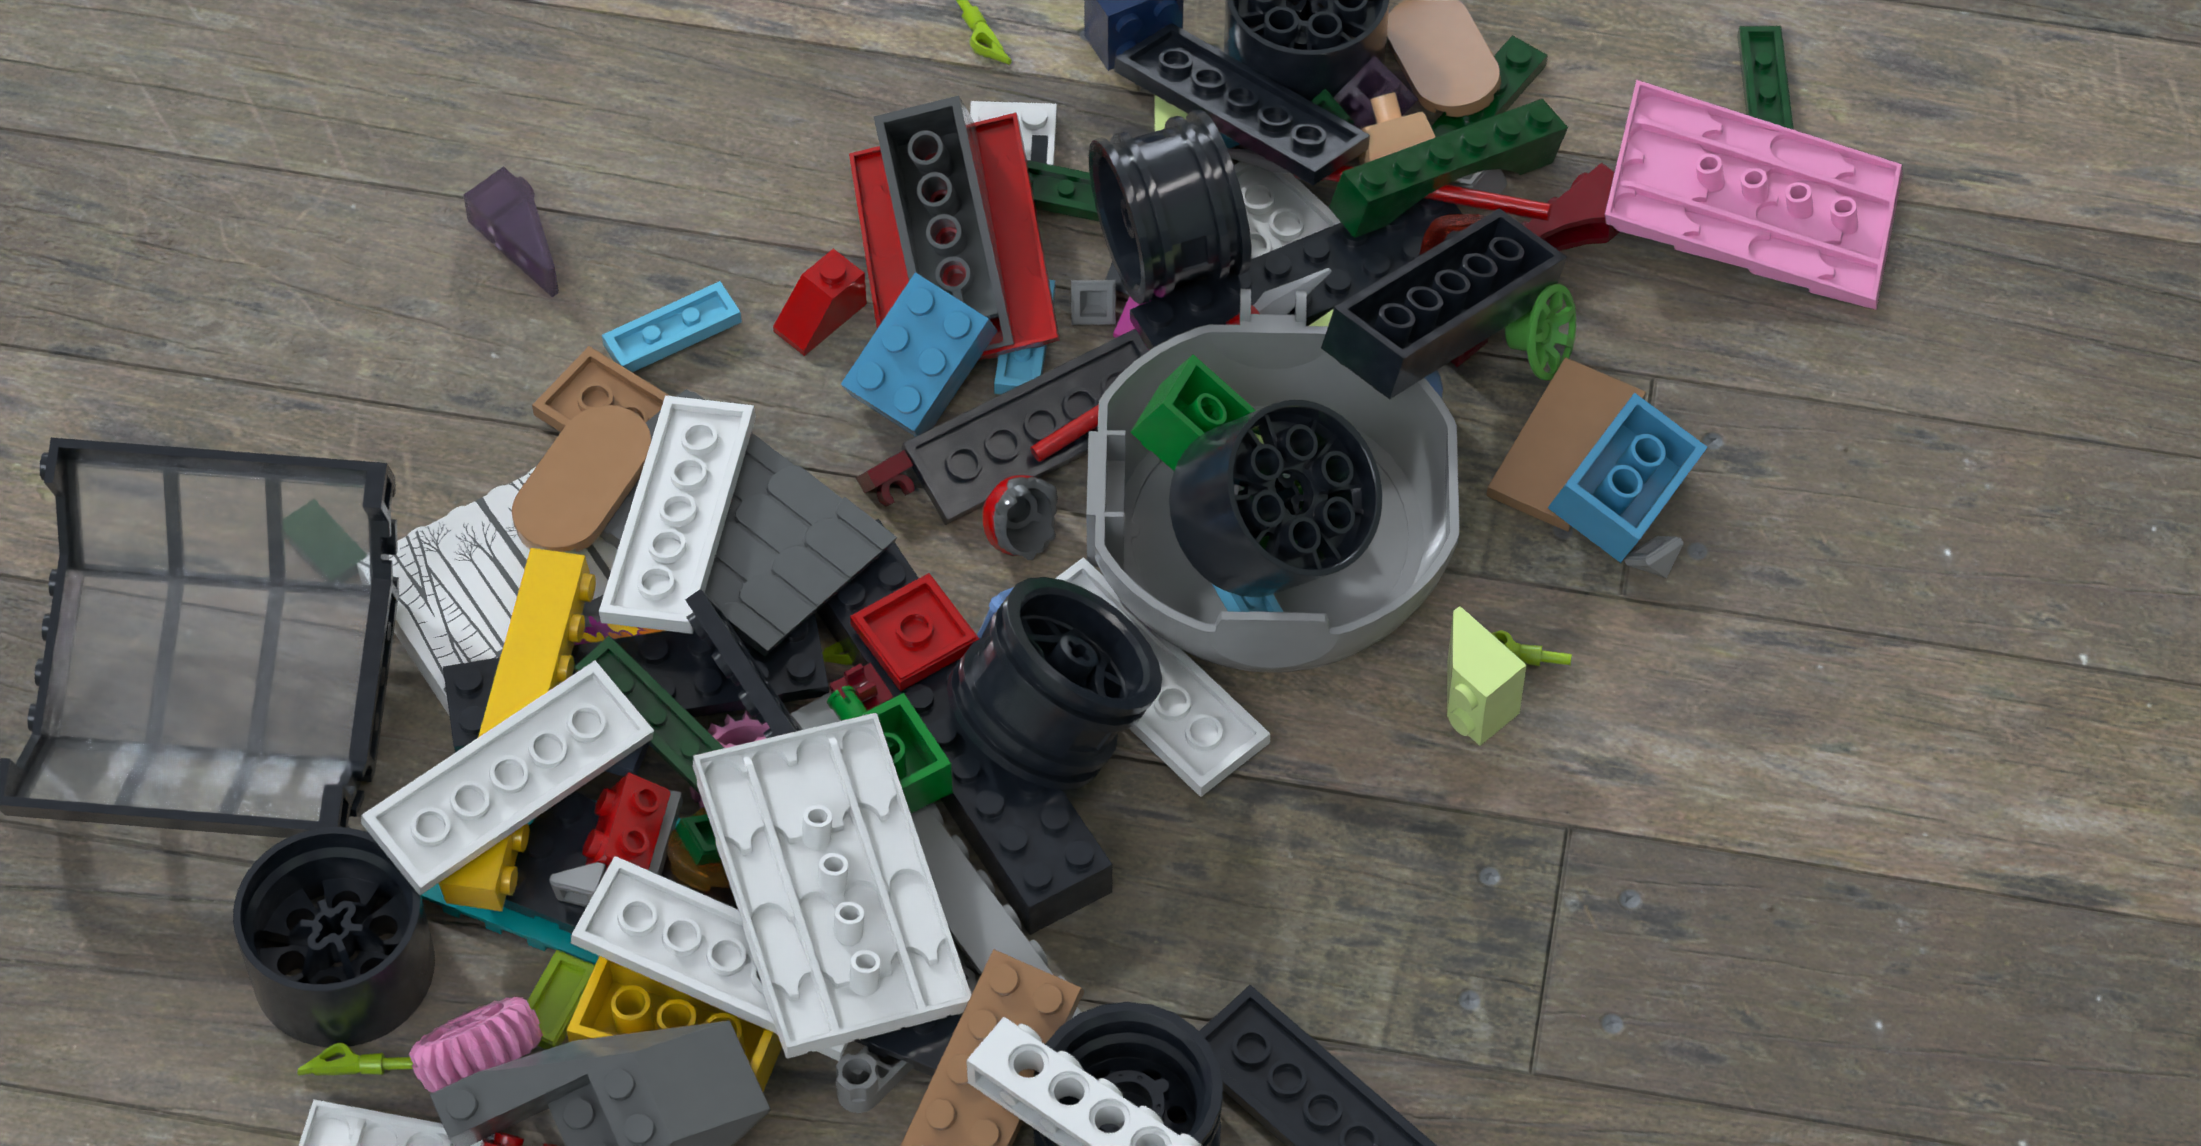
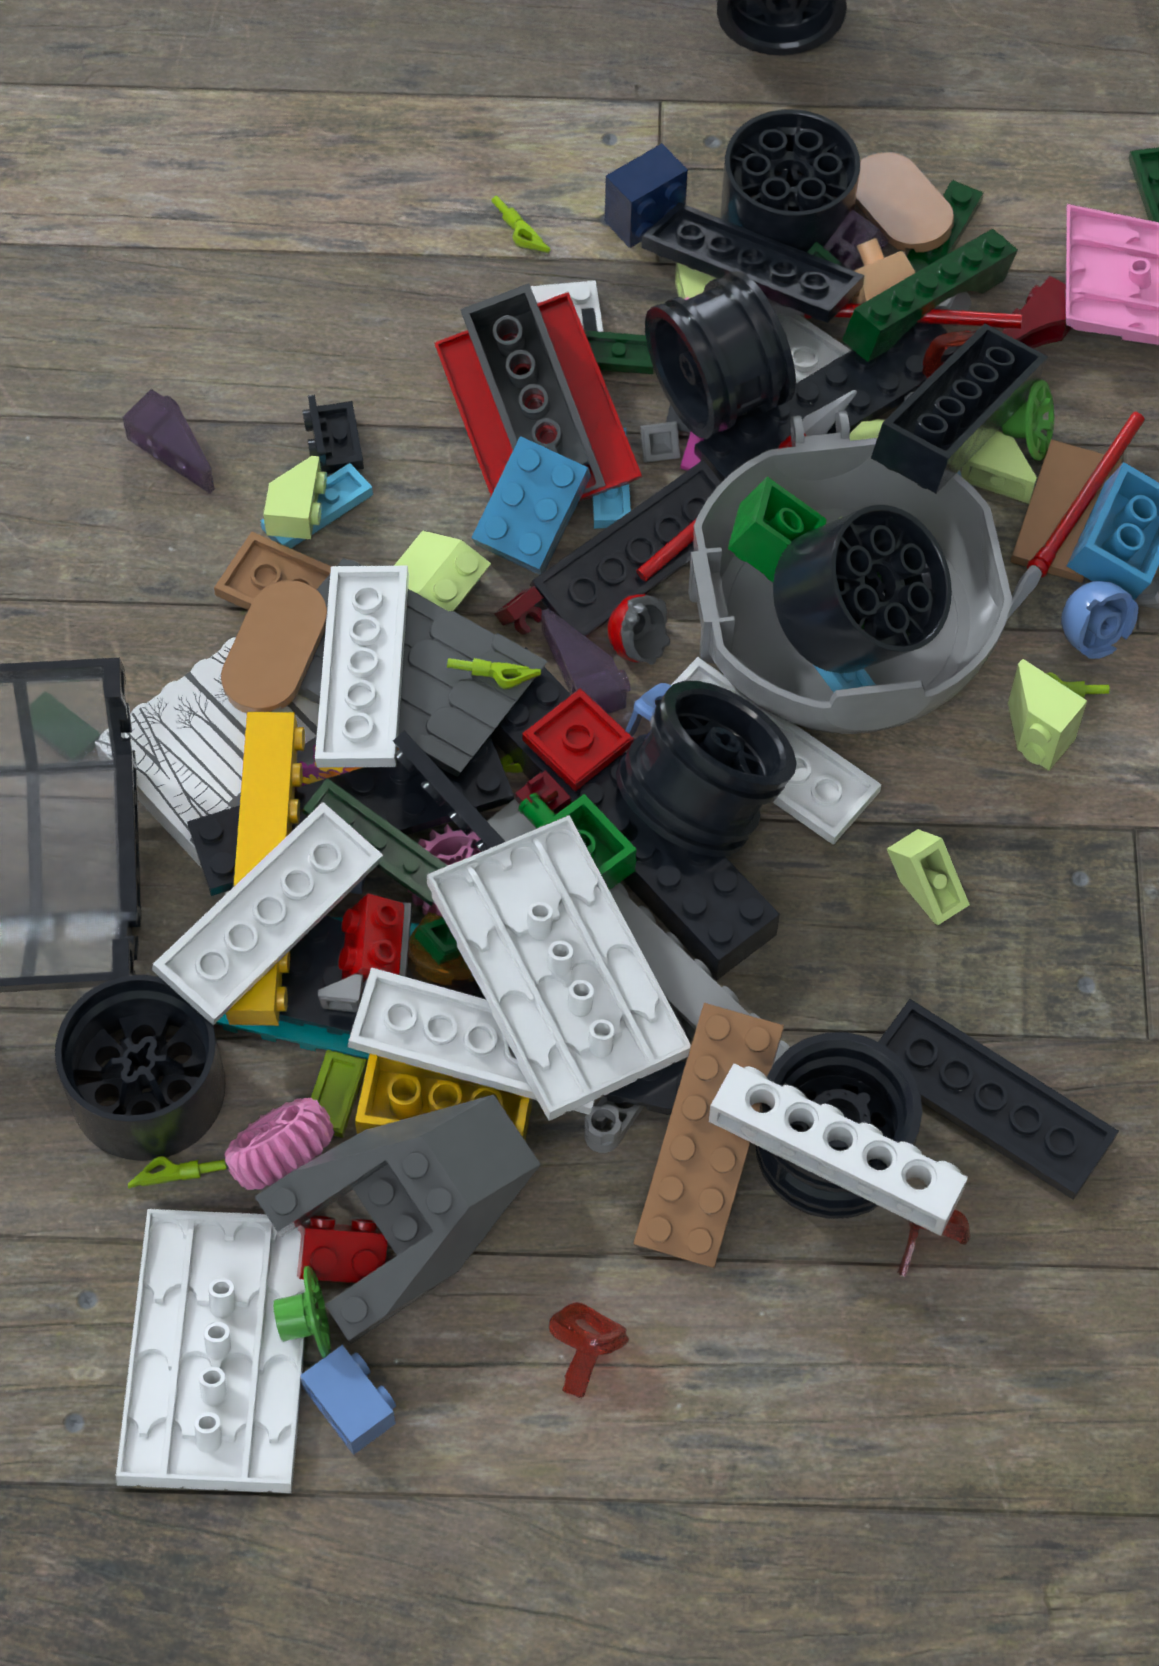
camera: 10 degrees left, 5 degrees up
(643, 316) = (293, 499): none -> yellowish green slope
(707, 247) = (334, 434): none -> black bracket
(801, 419) = (442, 569): none -> yellowish green slope
(821, 302) = (437, 470): red slope -> none
(833, 539) = (496, 671): none -> lime hand
(950, 552) = (585, 664): none -> clear purple slope
(1304, 846) = (929, 875): none -> yellowish green slope
(1492, 381) = (1001, 469): none -> yellowish green slope
(1519, 499) = (1043, 559): none -> red piece
(1572, 574) = (1098, 617): none -> medium blue cylinder

